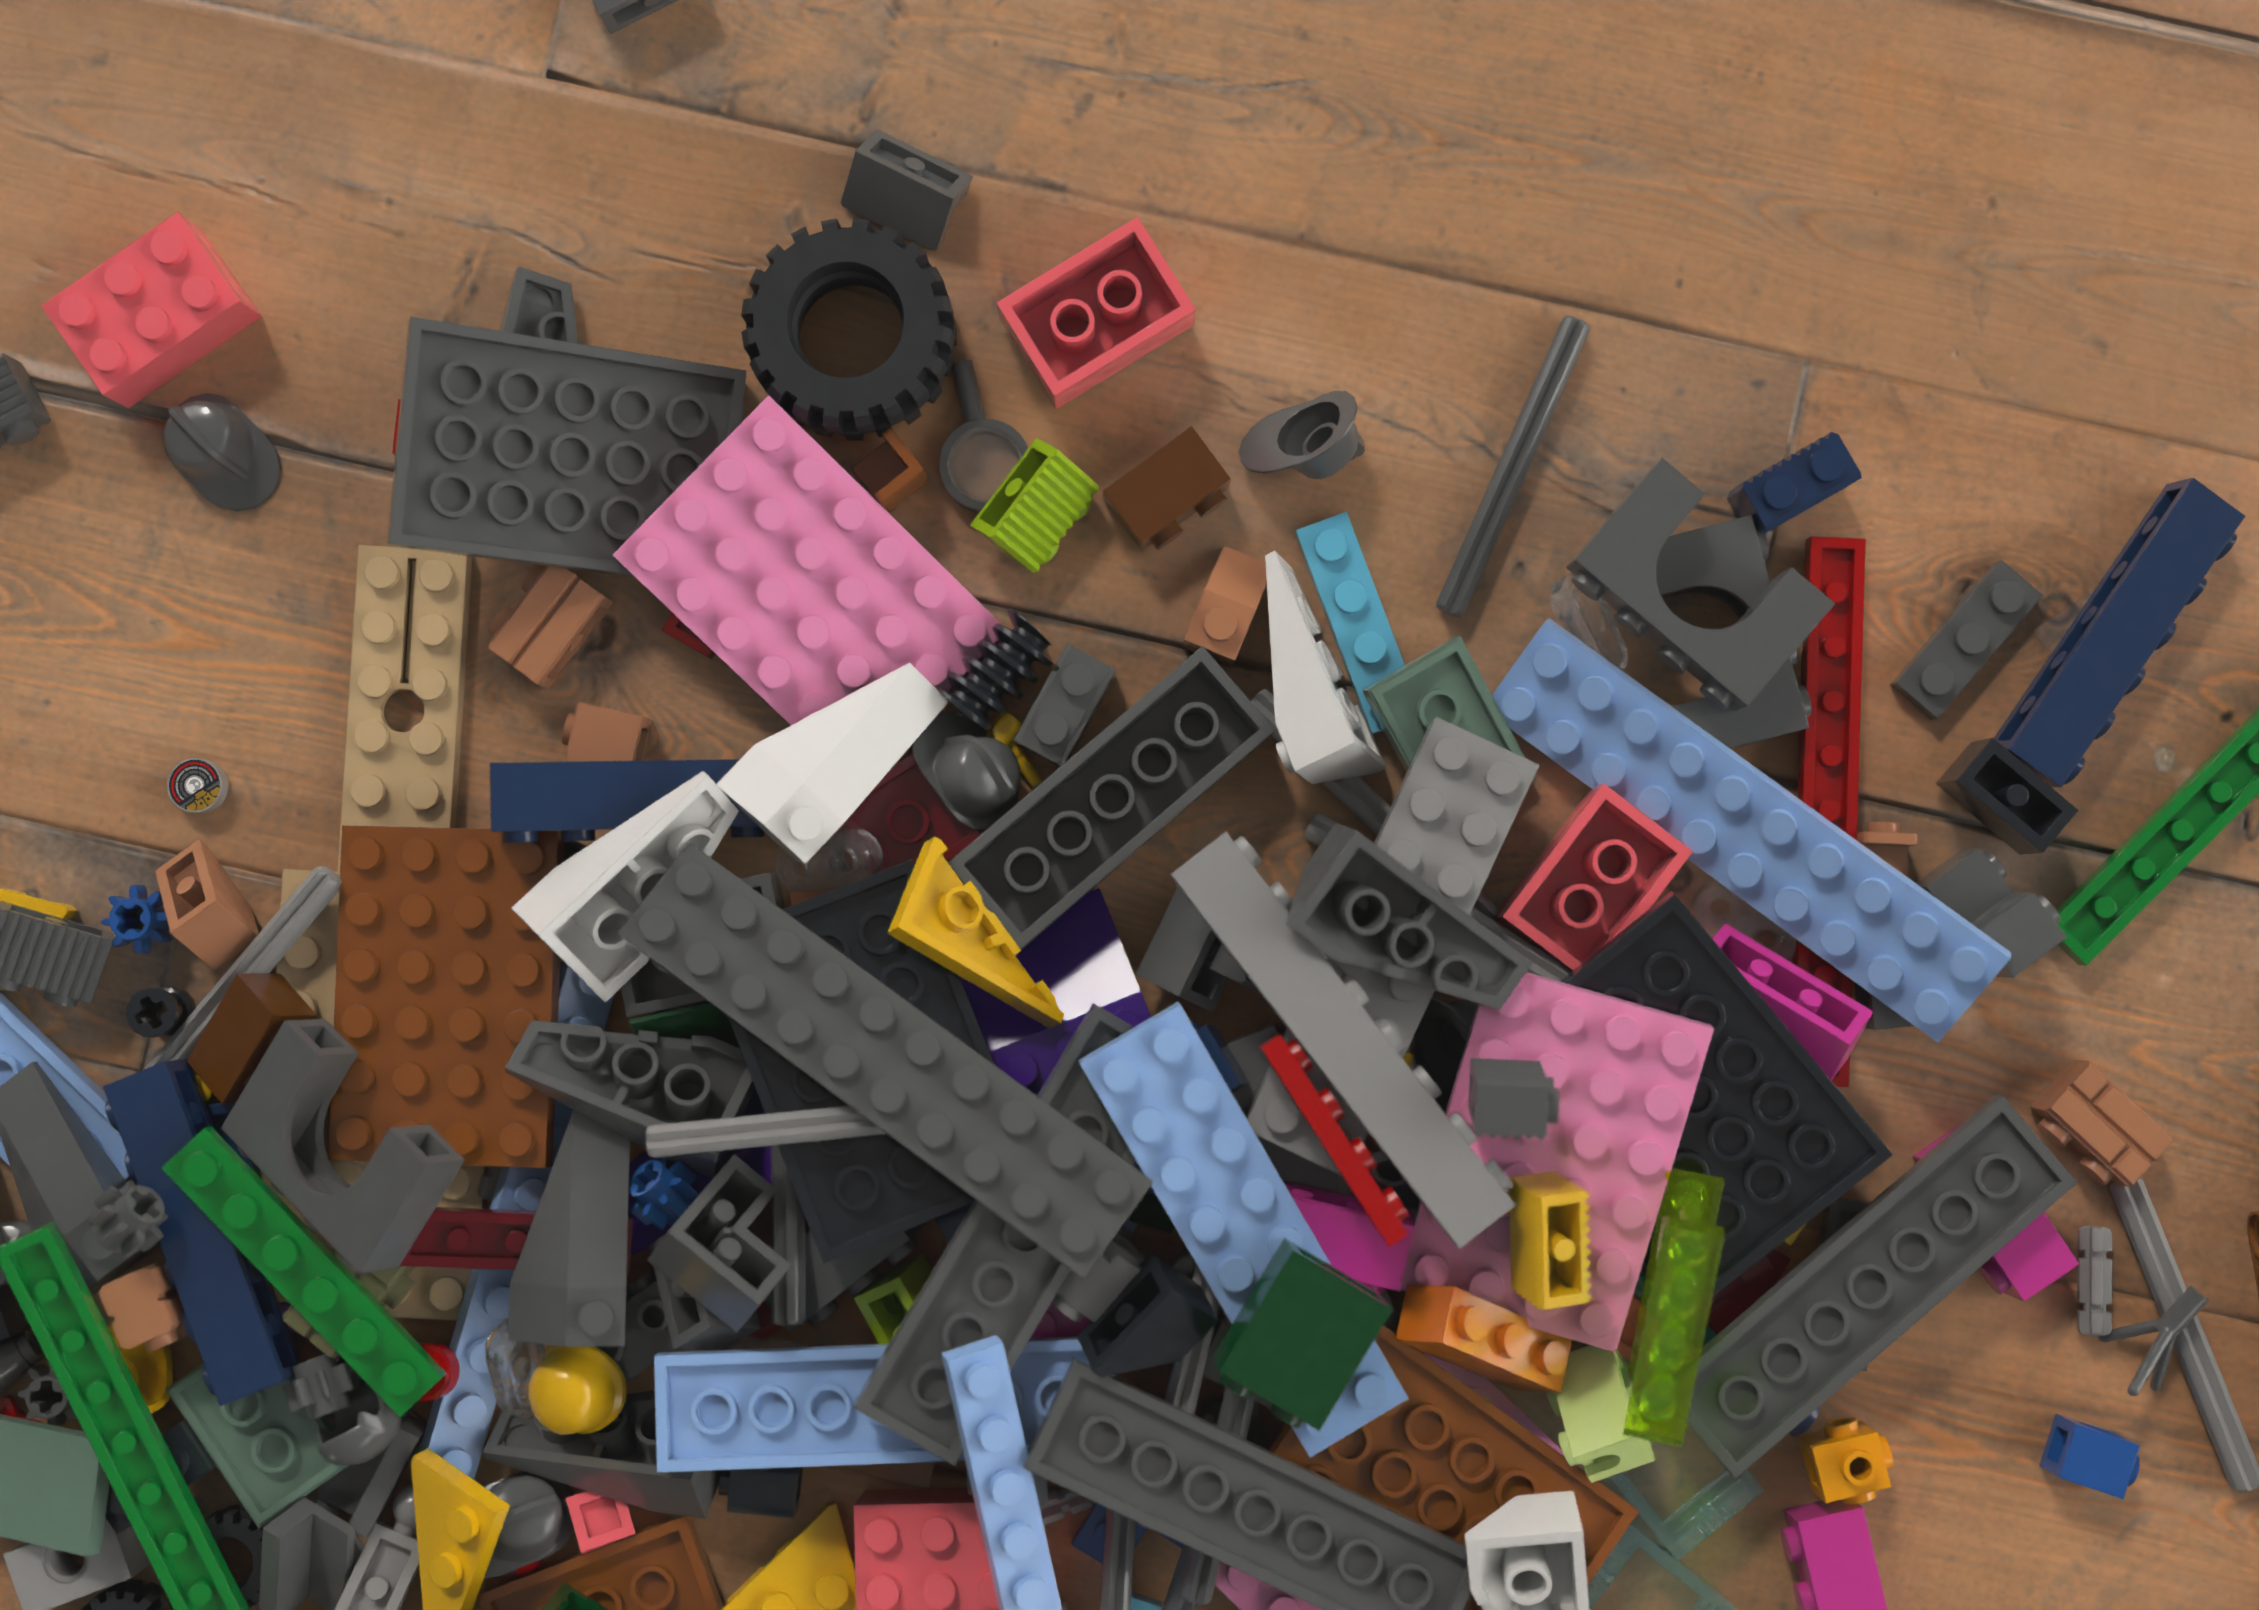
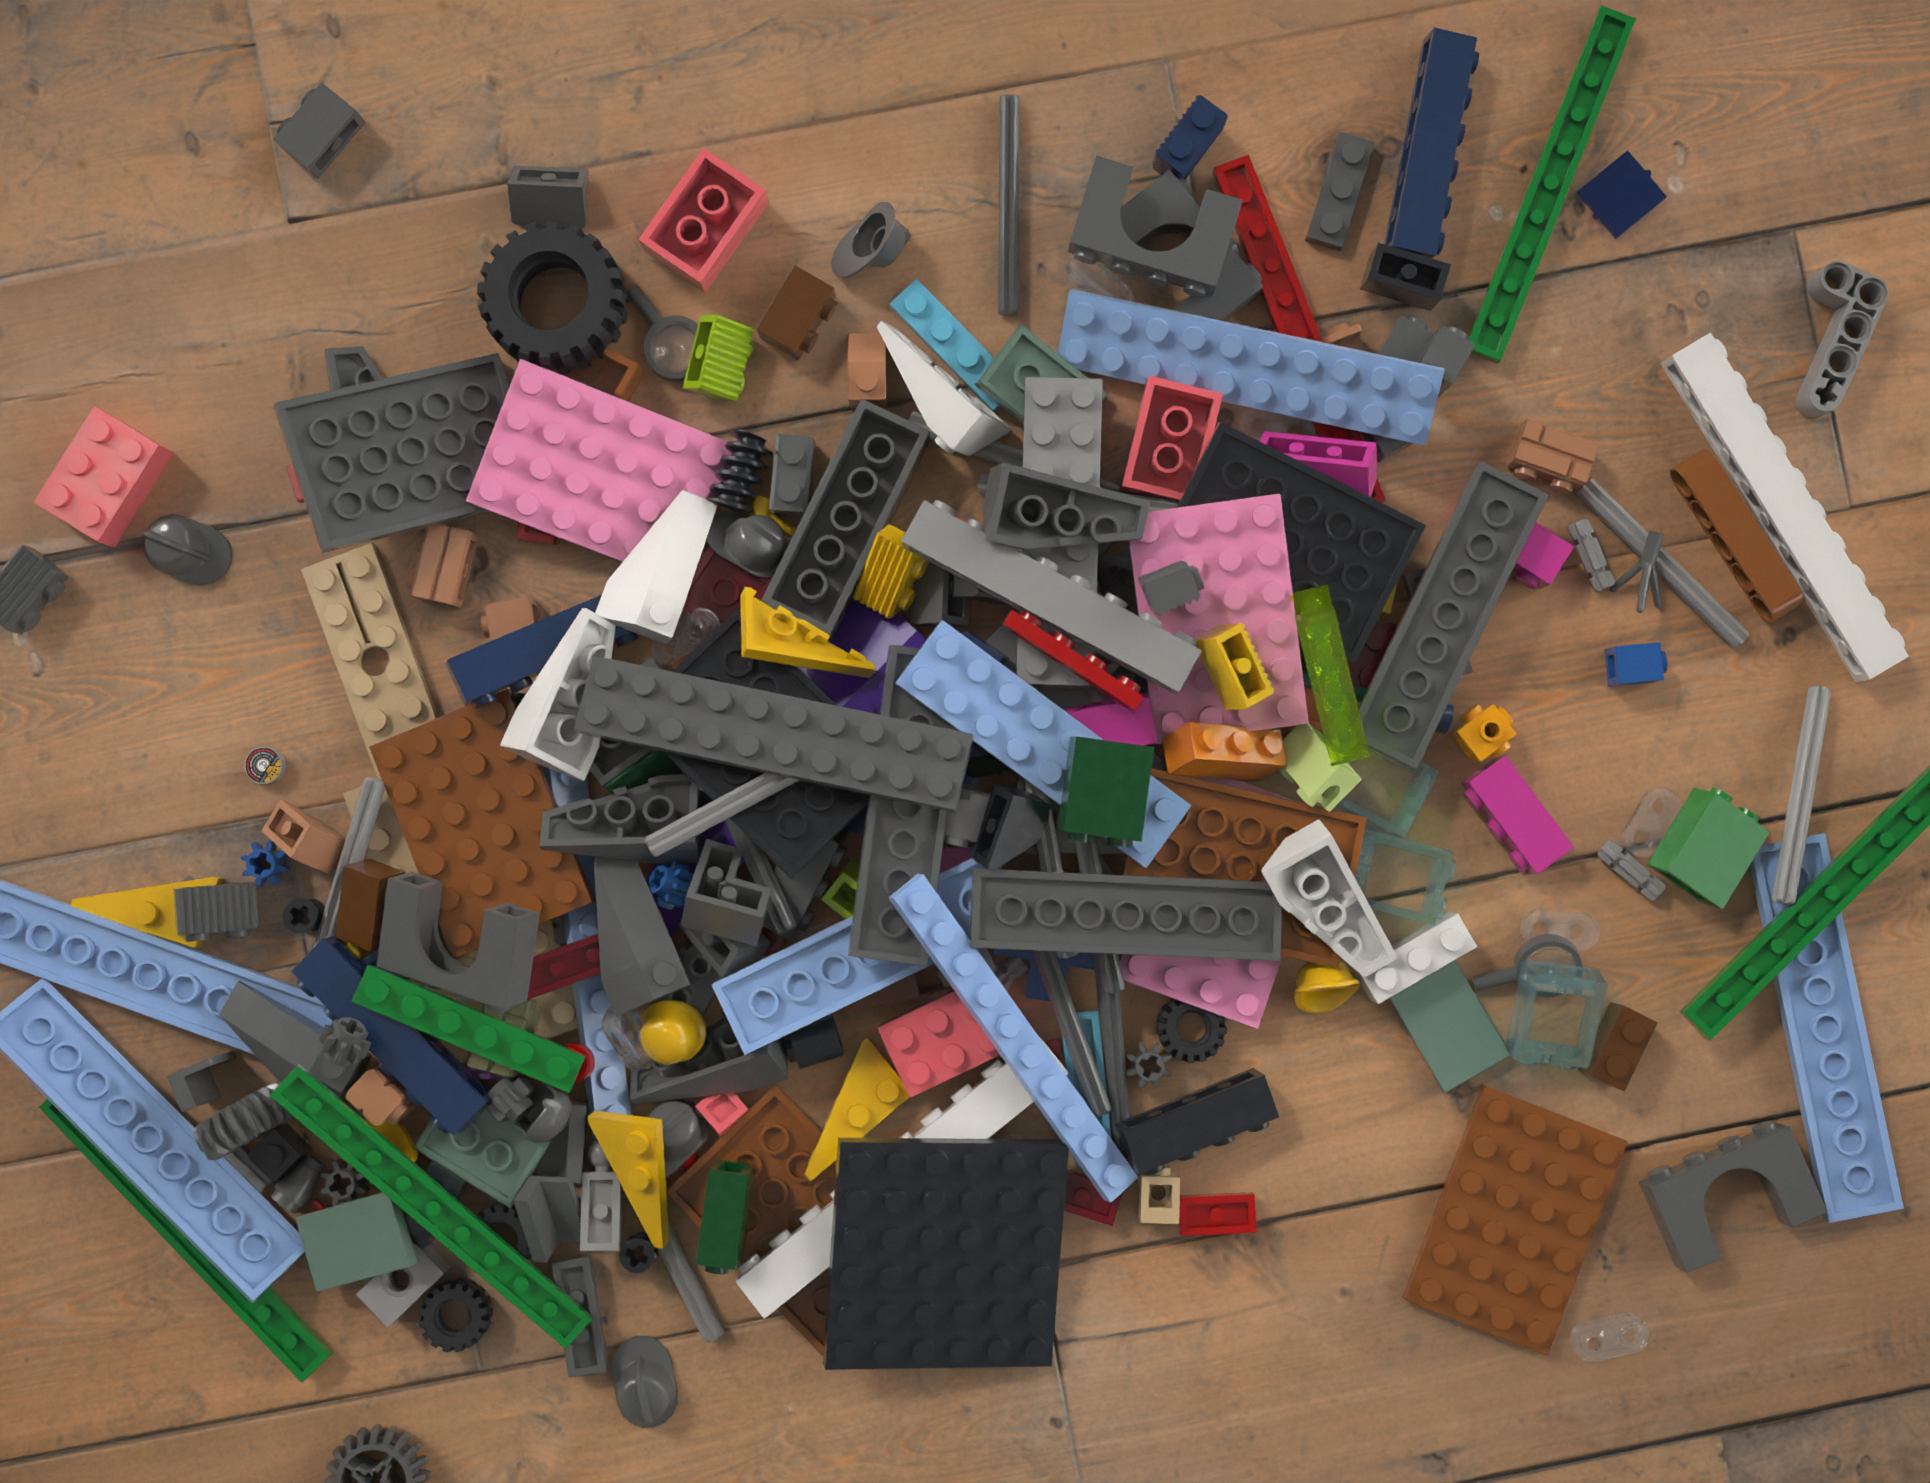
camera: 25 degrees left, 0 degrees up
(1137, 899) = (889, 574): none -> yellow brick

